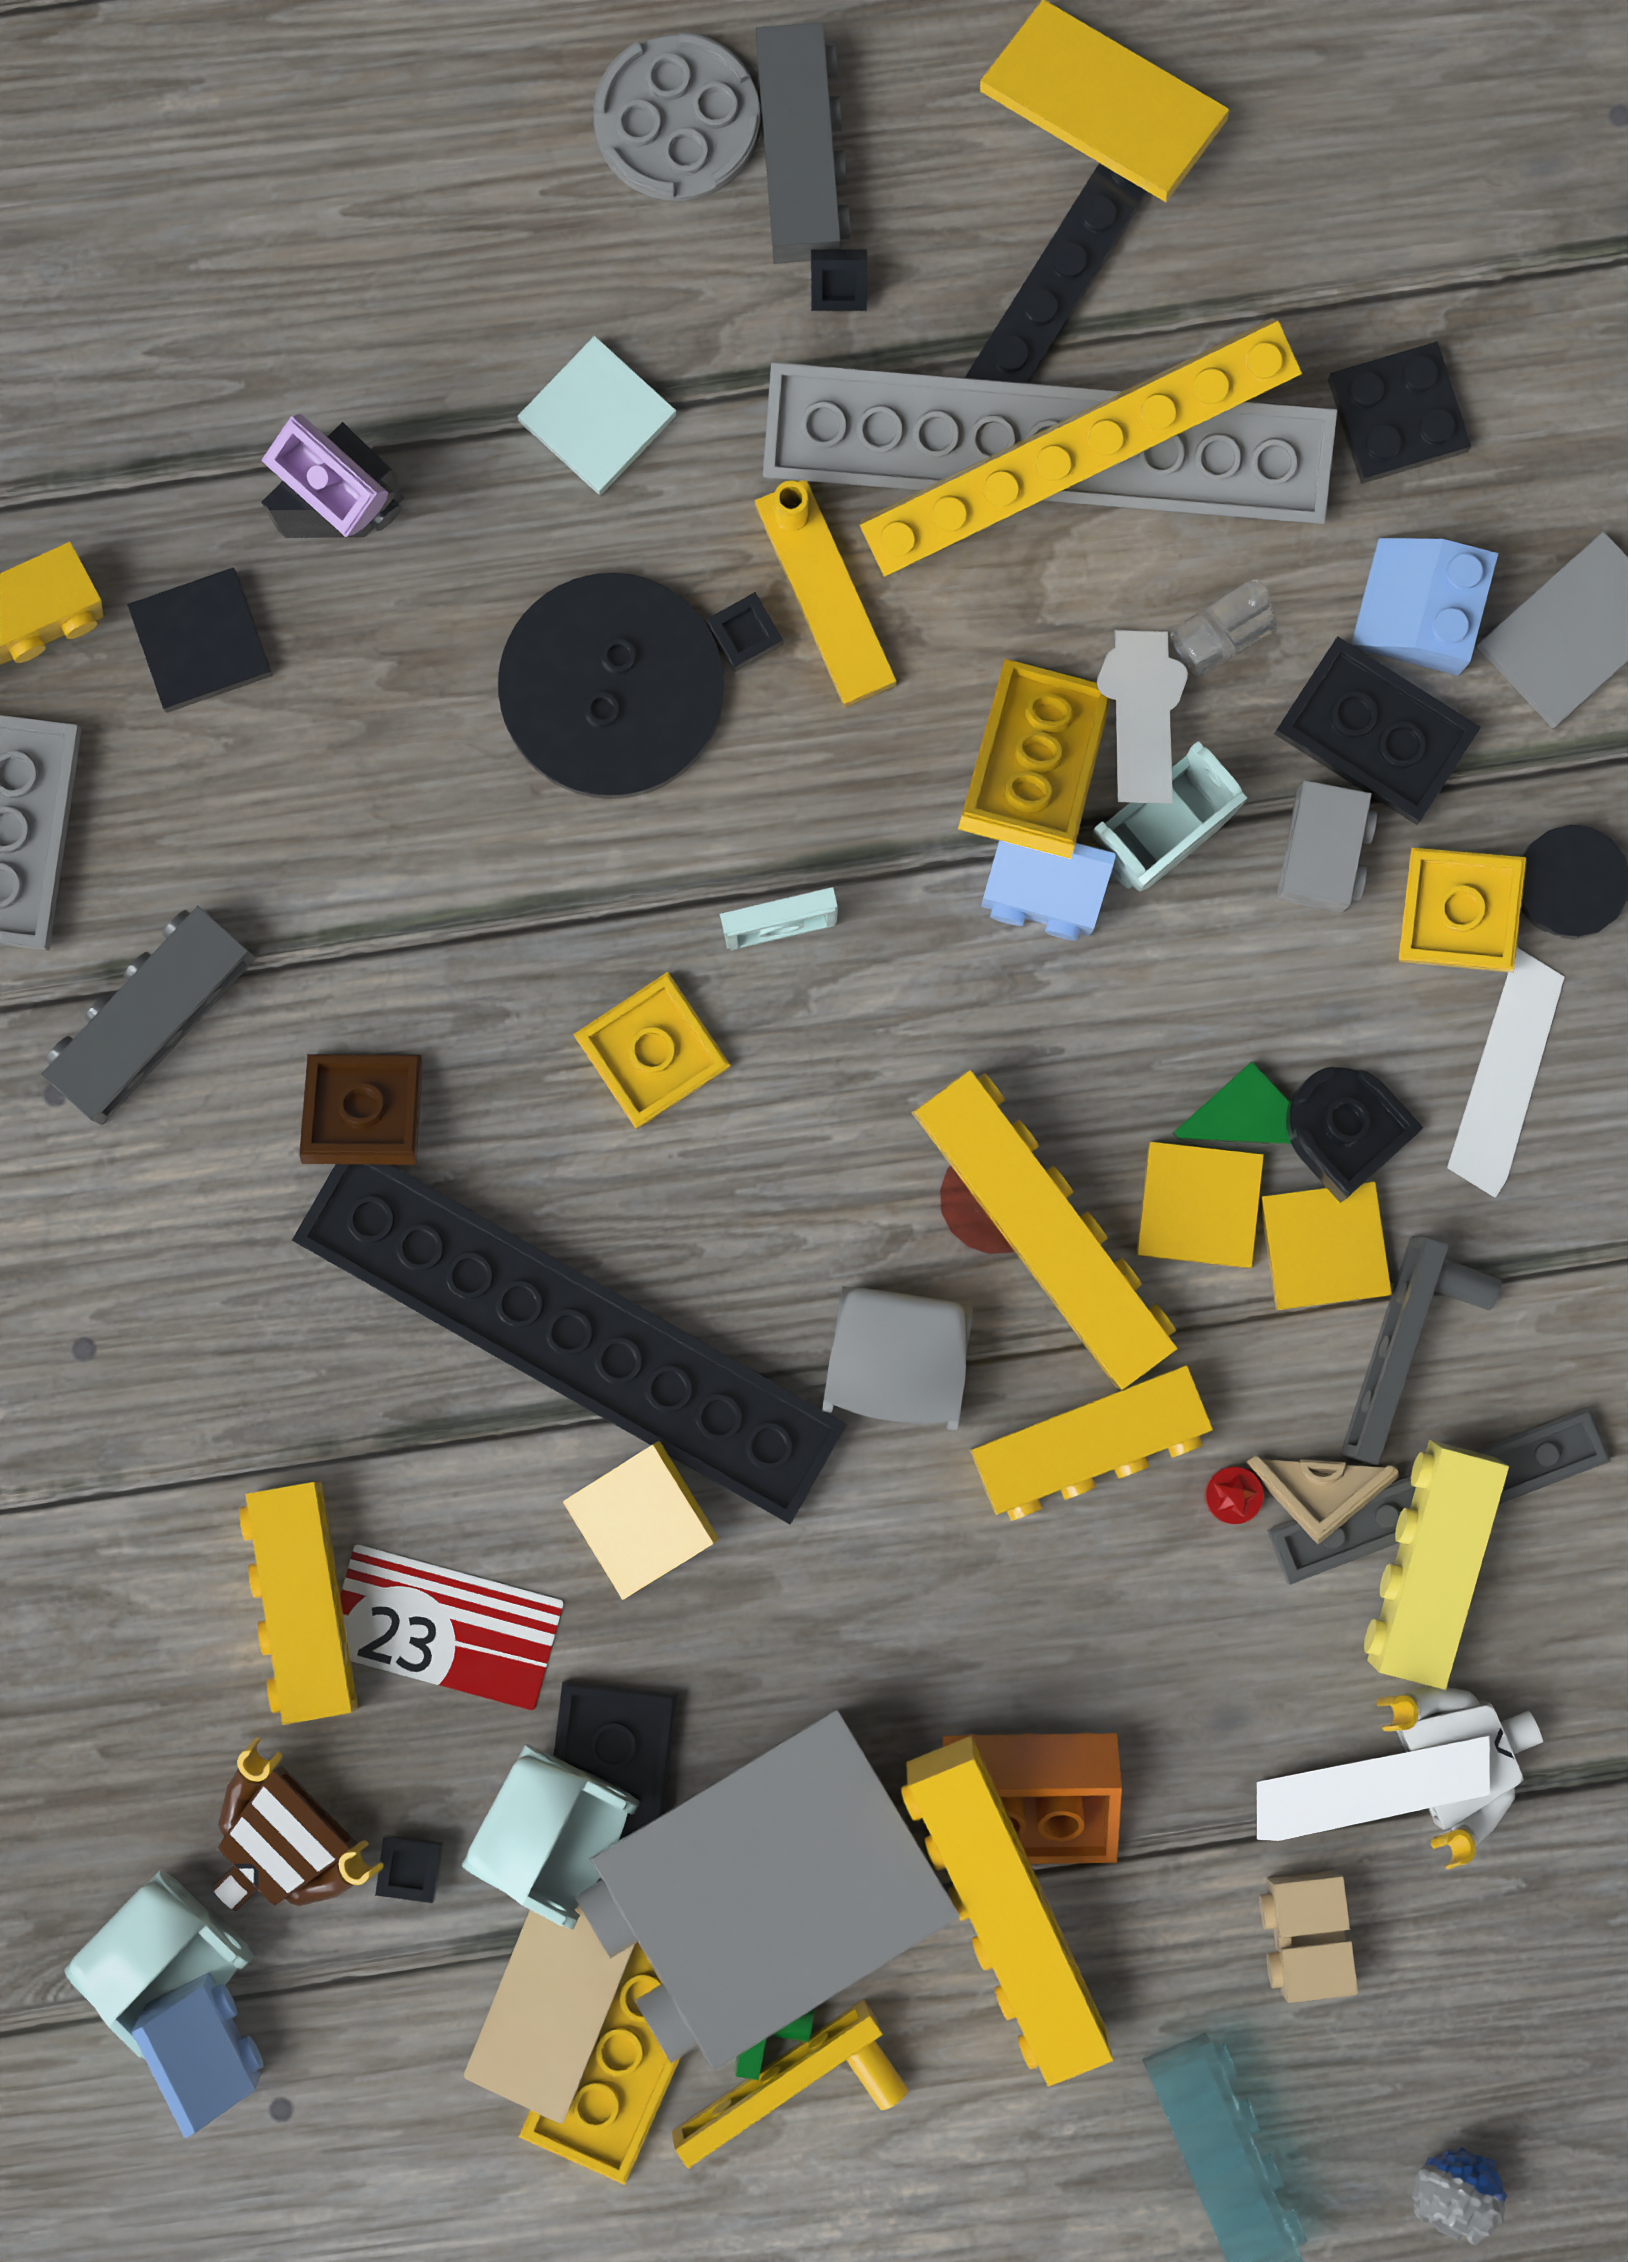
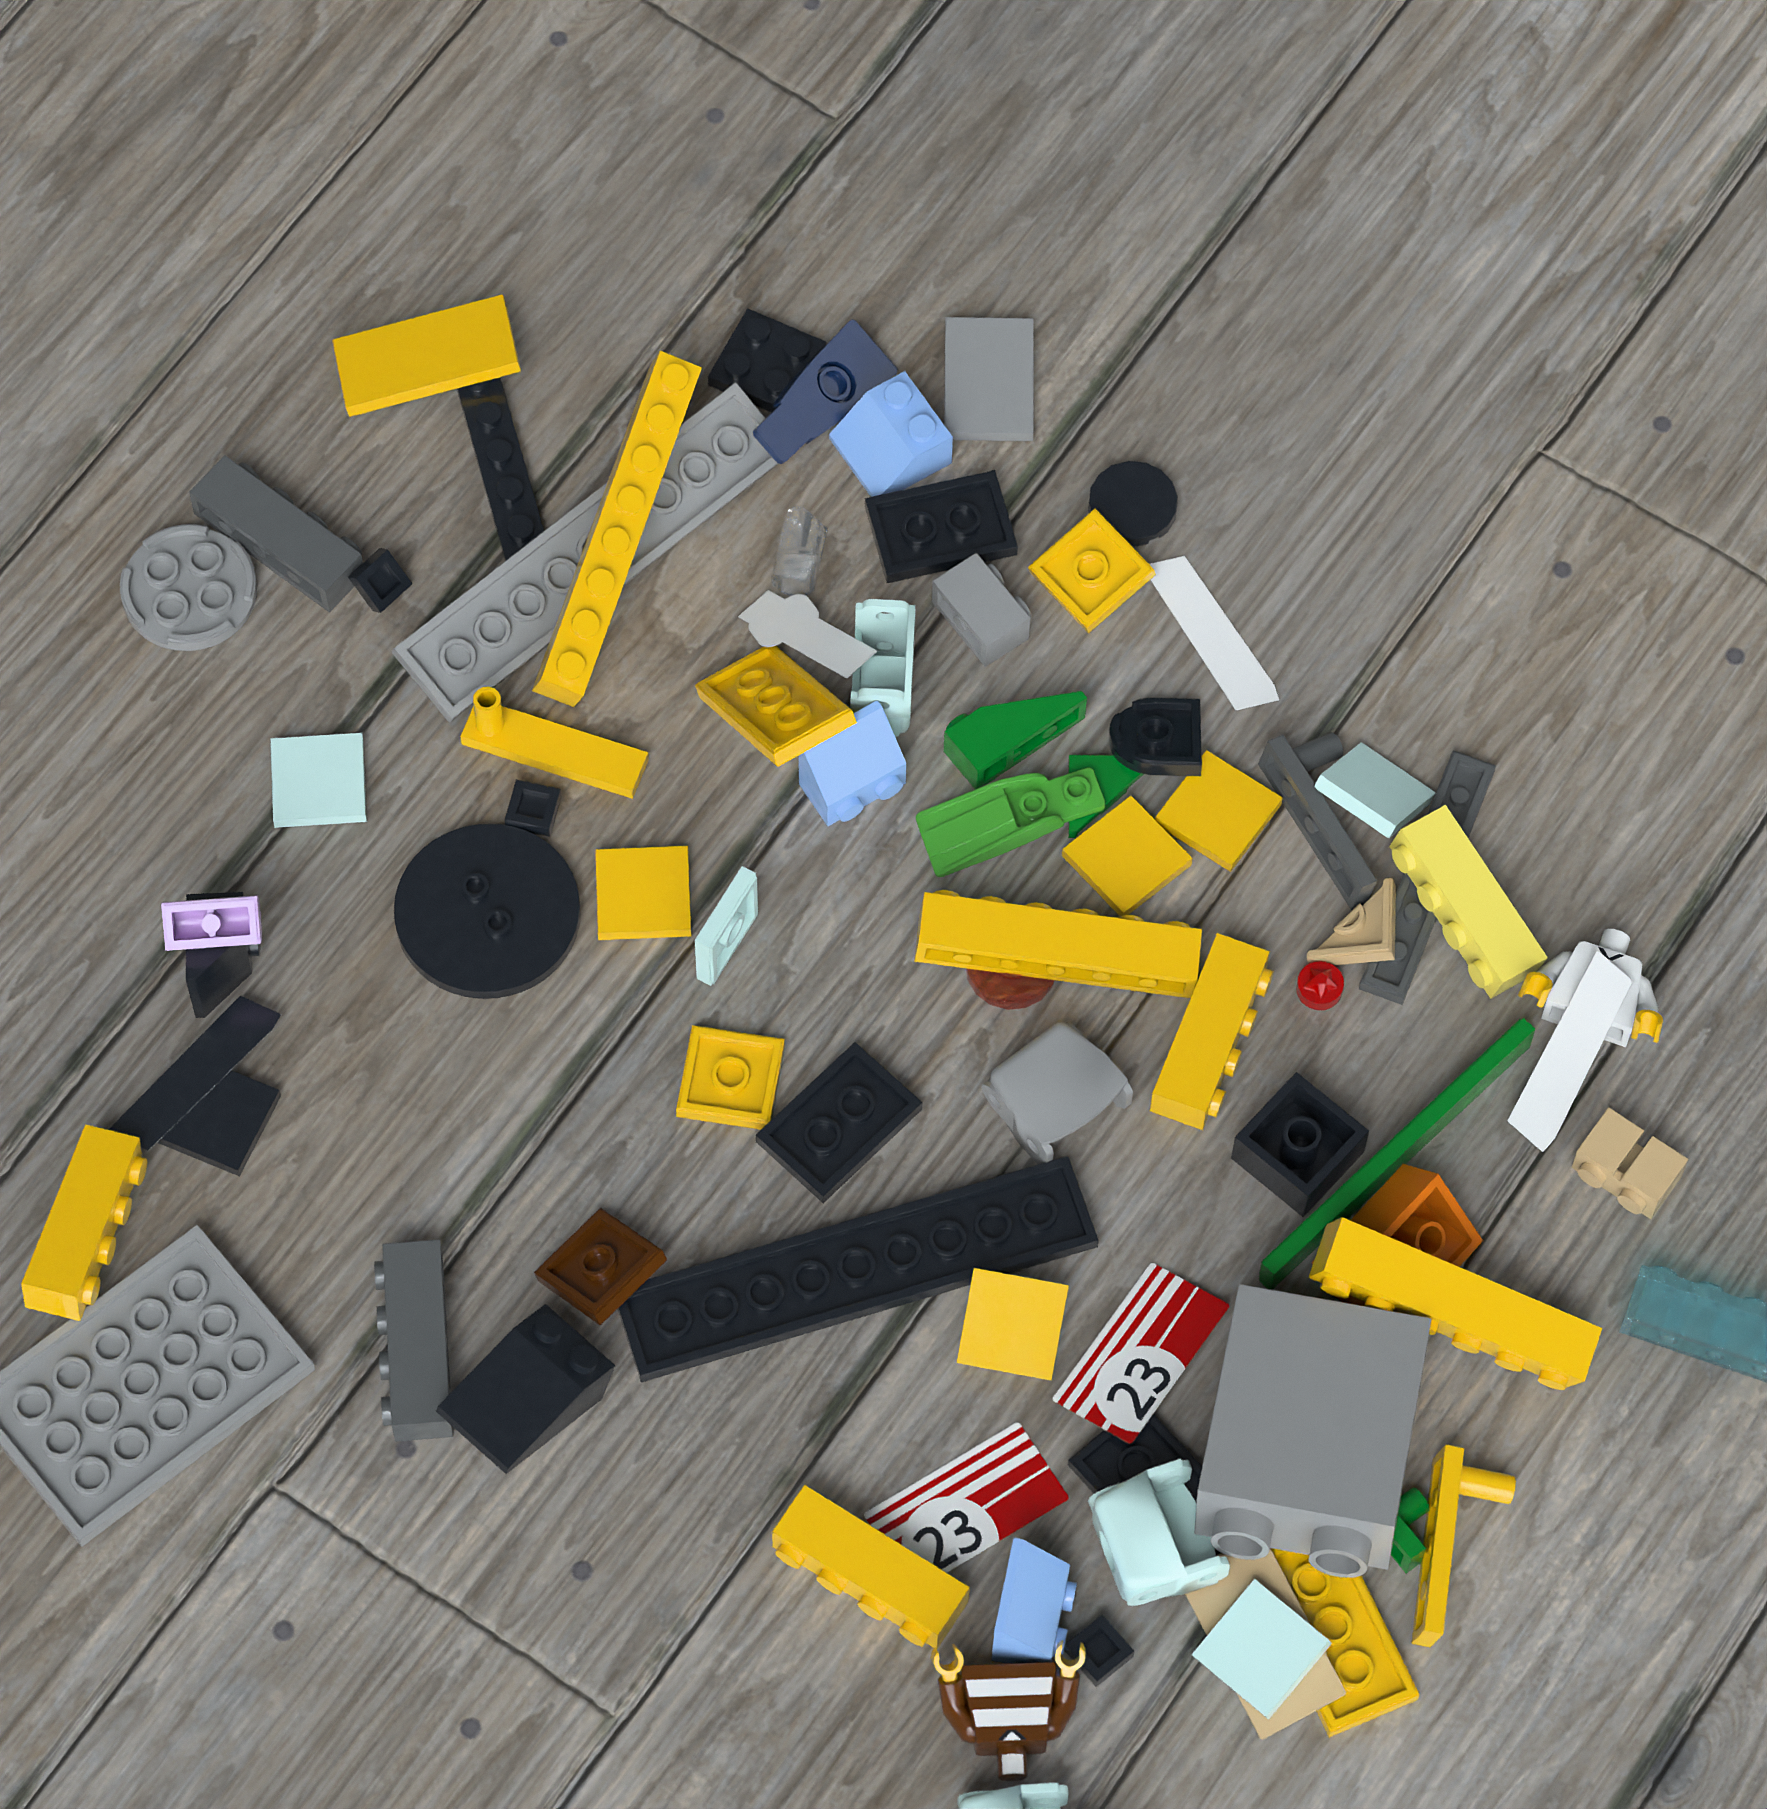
camera: 50 degrees left, 20 degrees down
(177, 1159) = (527, 1389): none -> black slope
(218, 584) = (197, 1071): none -> black sticker
(385, 1782) = (1032, 1606): none -> light blue slope
(536, 2012) = (1261, 1649): none -> light aqua tile
(694, 1188) = (839, 1122): none -> black plate
(723, 1654) = (1141, 1353): none -> sticker
(757, 806) = (643, 893): none -> yellow tile
(1048, 1625) = (1299, 1144): none -> black brick
(1127, 1715) = (1397, 1152): none -> green tile
(1133, 1061) = (1004, 817): none -> bright green piece
(1212, 984) = (1007, 733): none -> green slope
(1412, 496) = (824, 391): none -> dark blue piece
(1475, 1376) = (1374, 790): none -> light aqua tile

